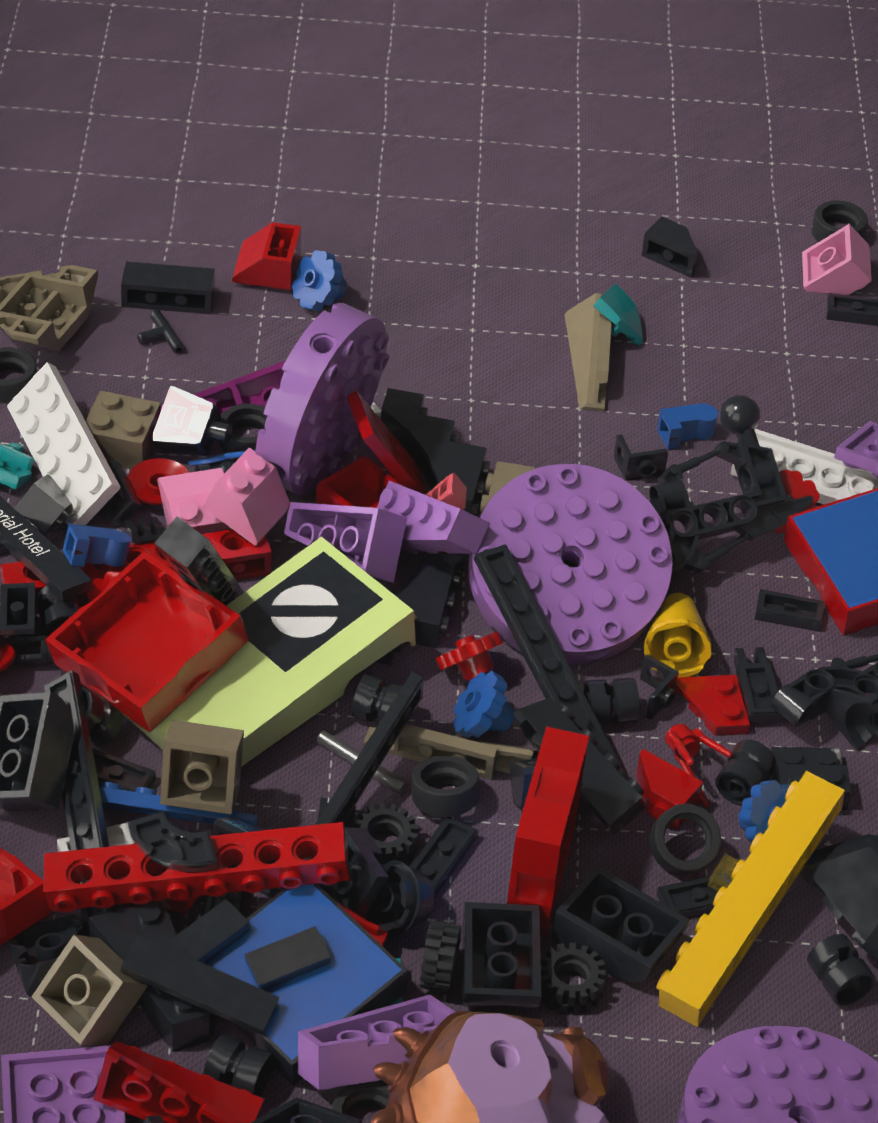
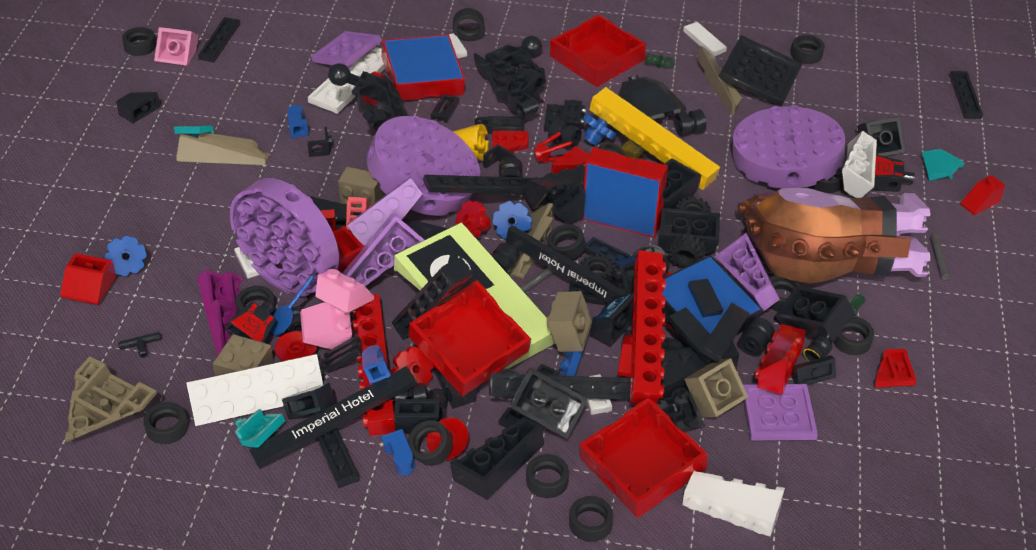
camera: 80 degrees left, 0 degrees up
(168, 287) = (99, 332): black brick -> none
(172, 846) = (643, 327): black tile -> none

